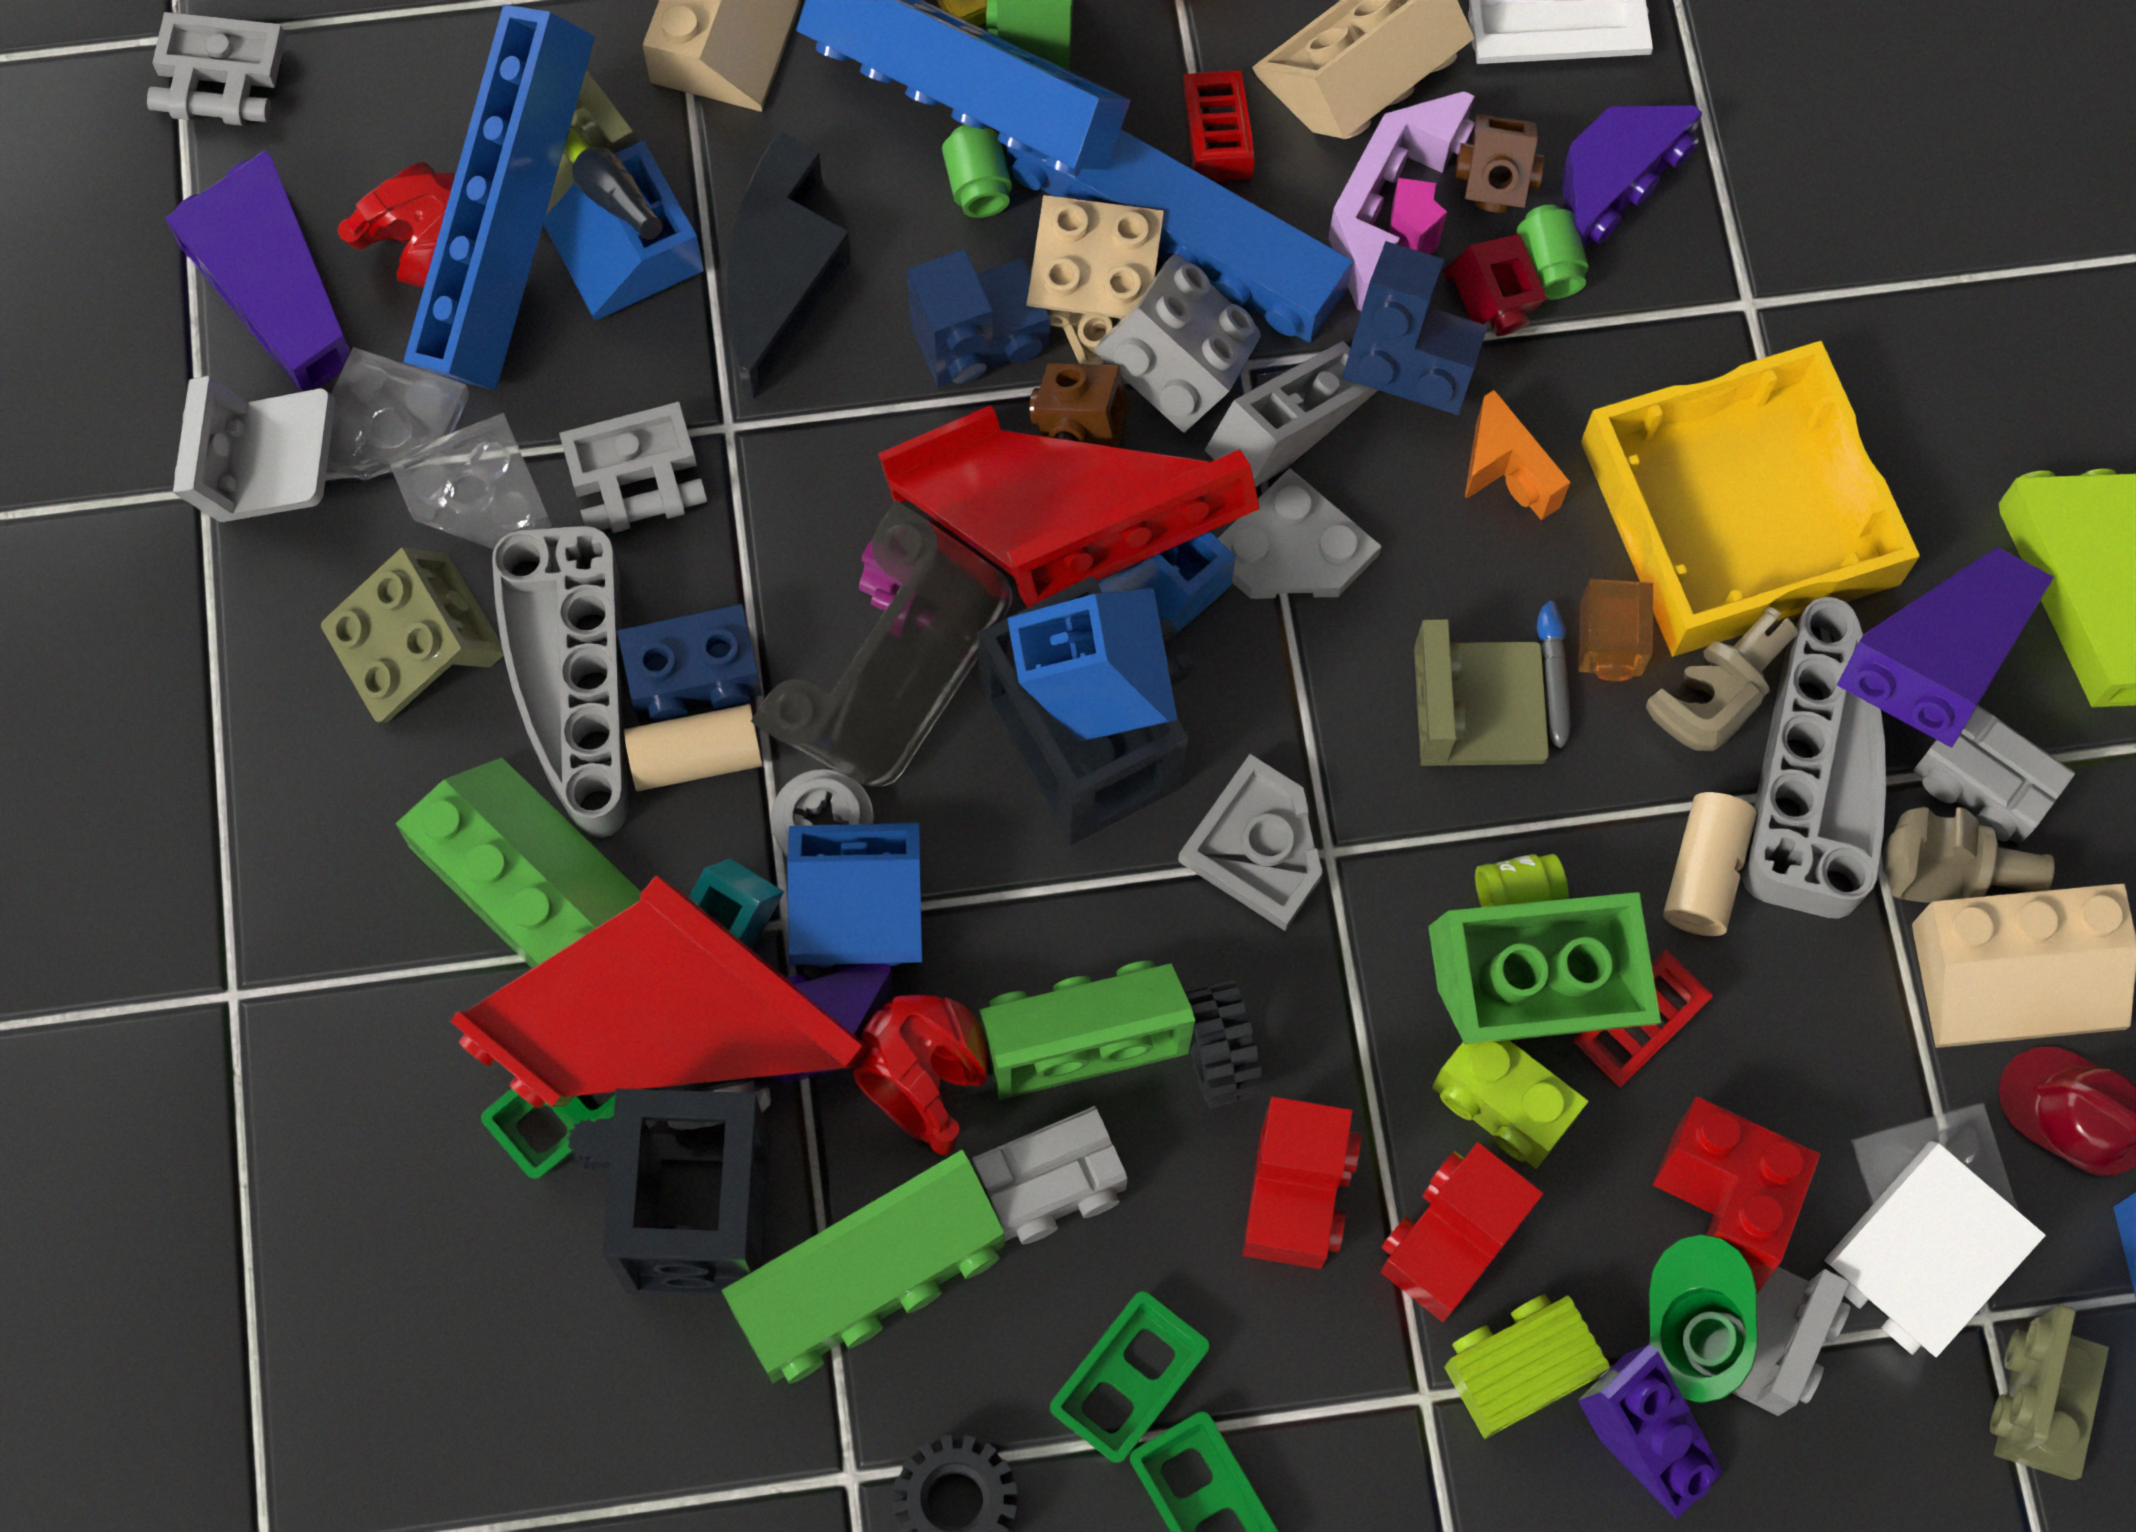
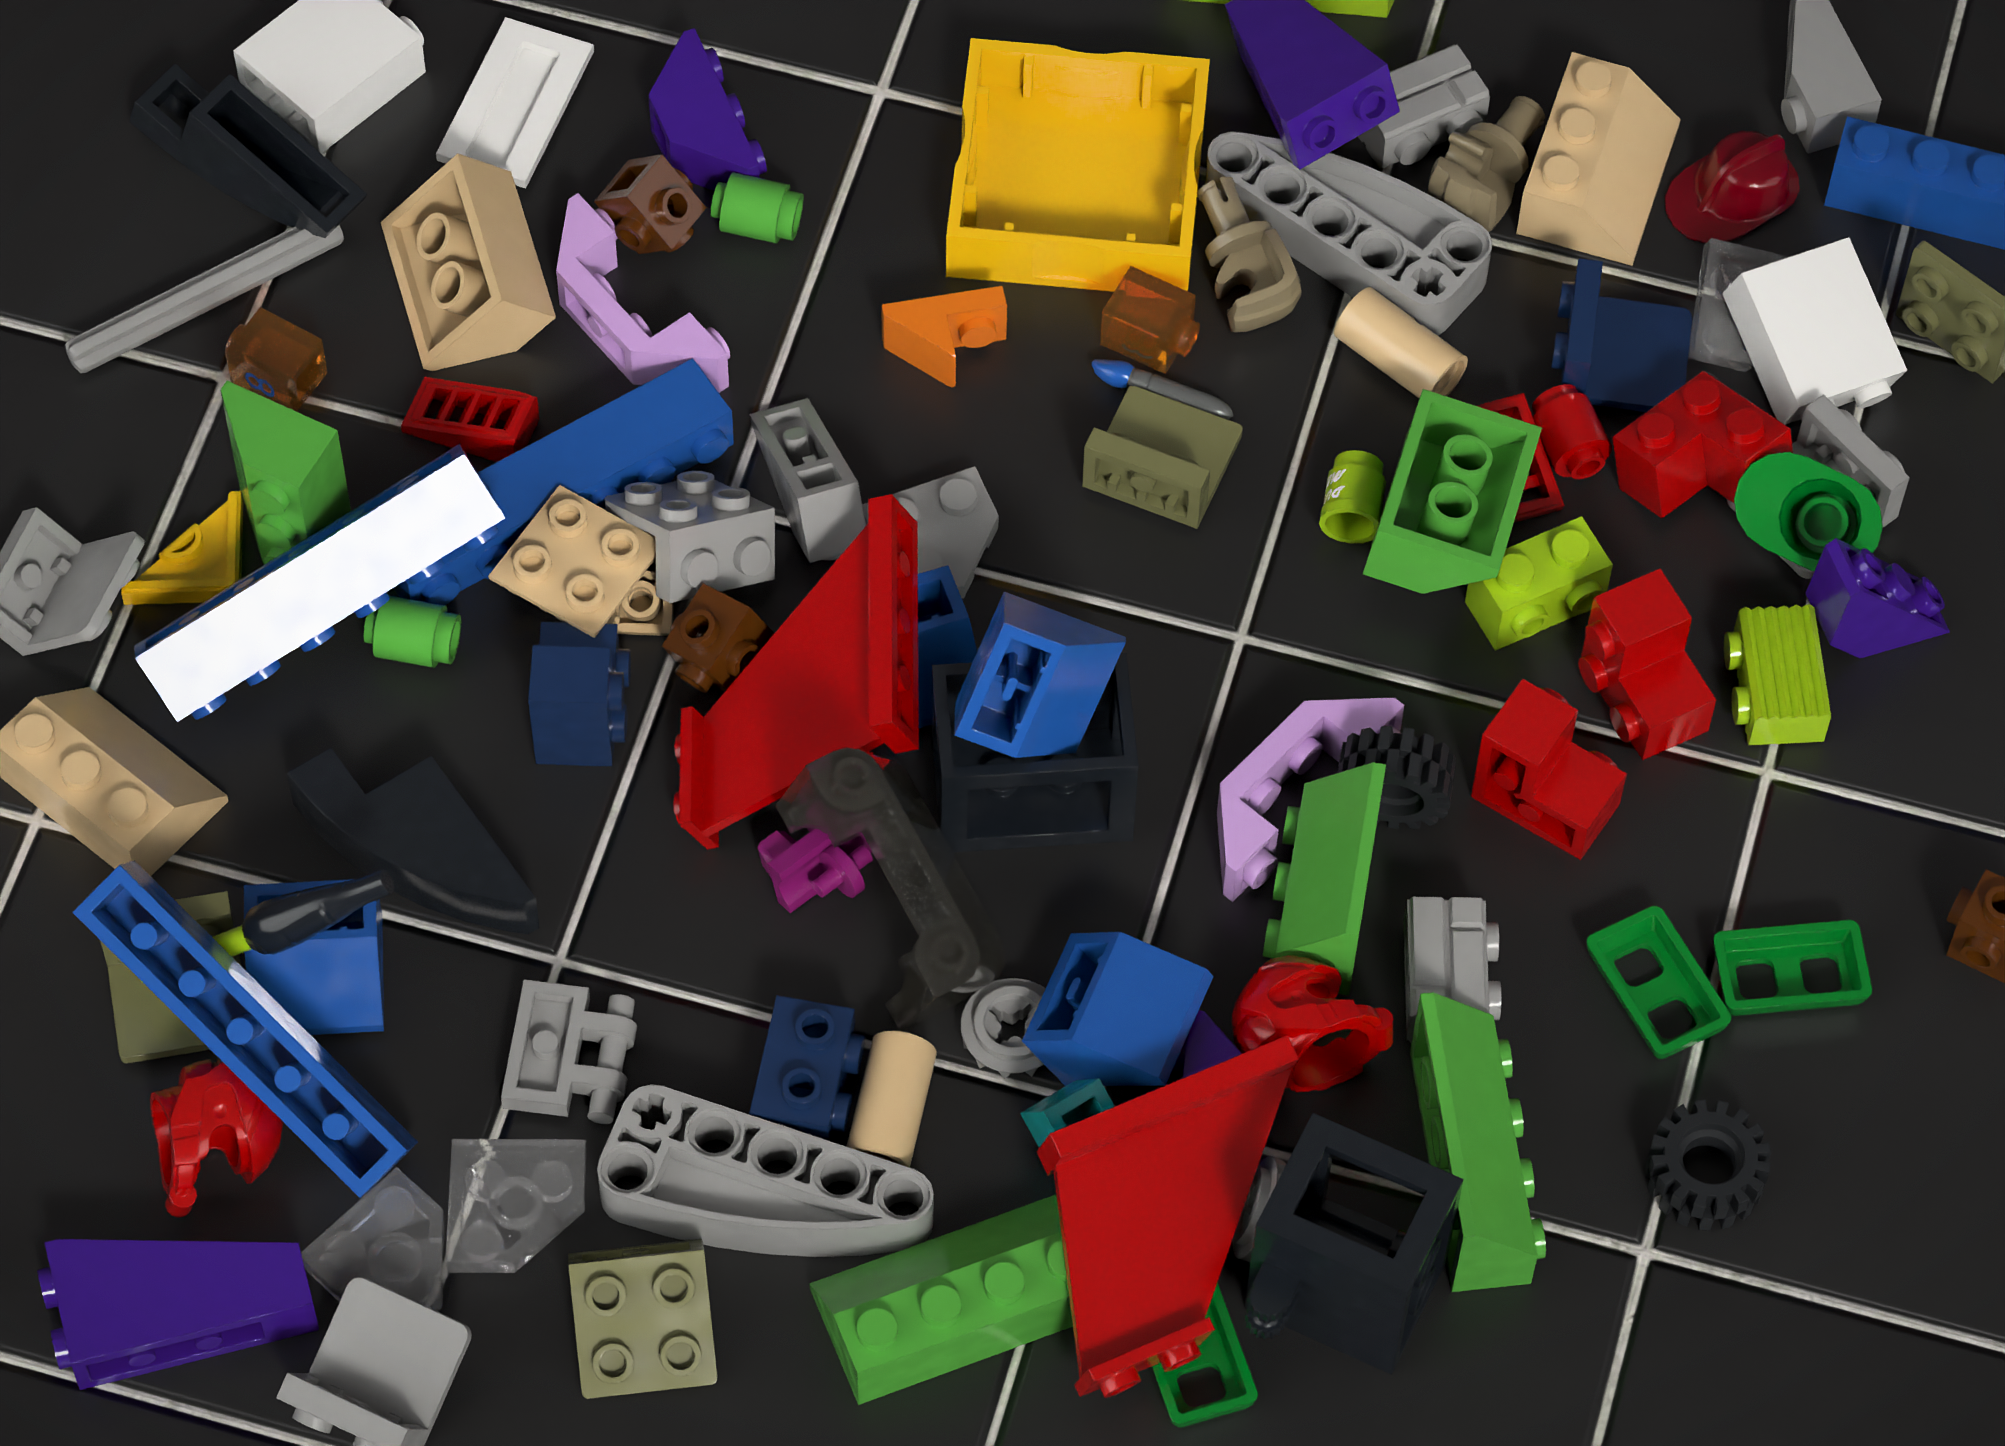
camera: 65 degrees left, 10 degrees down
(1092, 941) = (1246, 837): none -> lavender slope
(1258, 843) = (1212, 682): light grey plate -> none
(1404, 342) = (791, 345): dark blue brick -> none
(1417, 216) = (667, 294): dark pink piece -> none
(1497, 283) = (769, 263): dark red brick -> none
(1698, 1058) = (1571, 432): none -> red brick
(1822, 1066) = (1619, 348): none -> dark blue bracket

